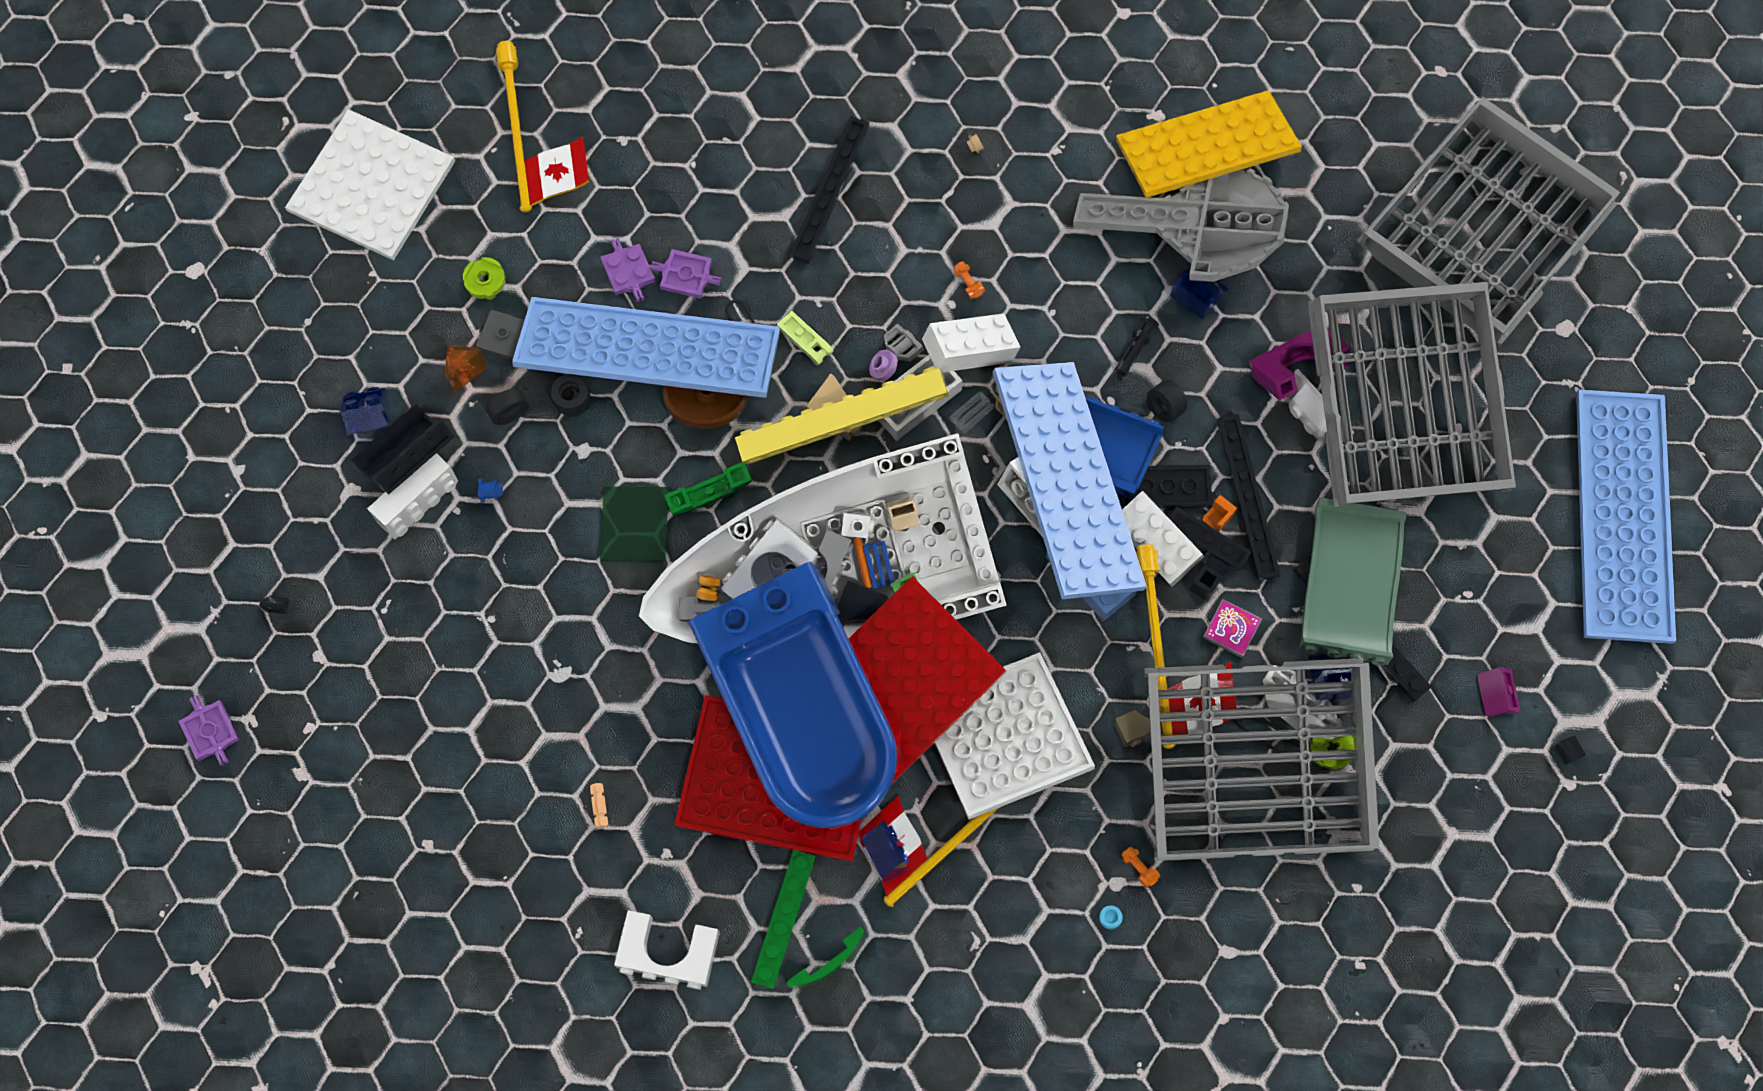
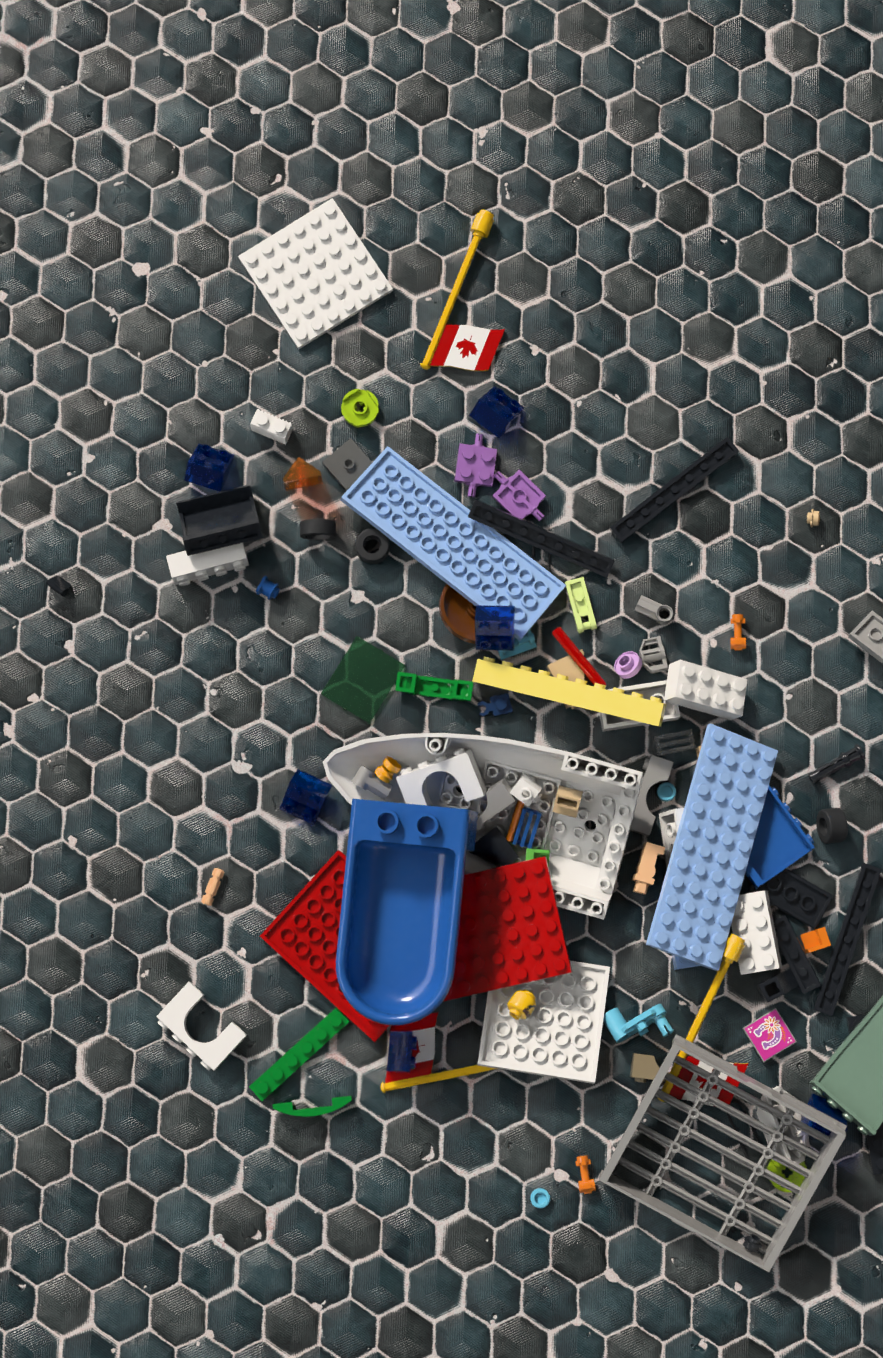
camera: 25 degrees right, 10 degrees up
(406, 340) = (271, 426): none -> white brick
(618, 210) = (496, 411): none -> clear blue slope
(642, 664) = (305, 797): none -> clear blue slope
(729, 297) = (541, 538): none -> black plate
(734, 395) = (495, 627): none -> clear blue slope
(764, 408) = (525, 644): none -> medium azure hinge
(781, 472) = (498, 705): none -> dark blue plate
(827, 380) = (577, 656): none -> red axle
(876, 303) = (652, 609): none -> light grey piece
(974, 448) = (656, 771): none -> light grey arch
(976, 733) = (521, 1004): none -> yellow head
(992, 461) = (666, 791): none -> medium azure tile
(1016, 536) = (646, 867): none -> light nougat hips
(1091, 703) = (622, 1030): none -> medium azure piece
(1344, 833) = (752, 1243): none -> black plate

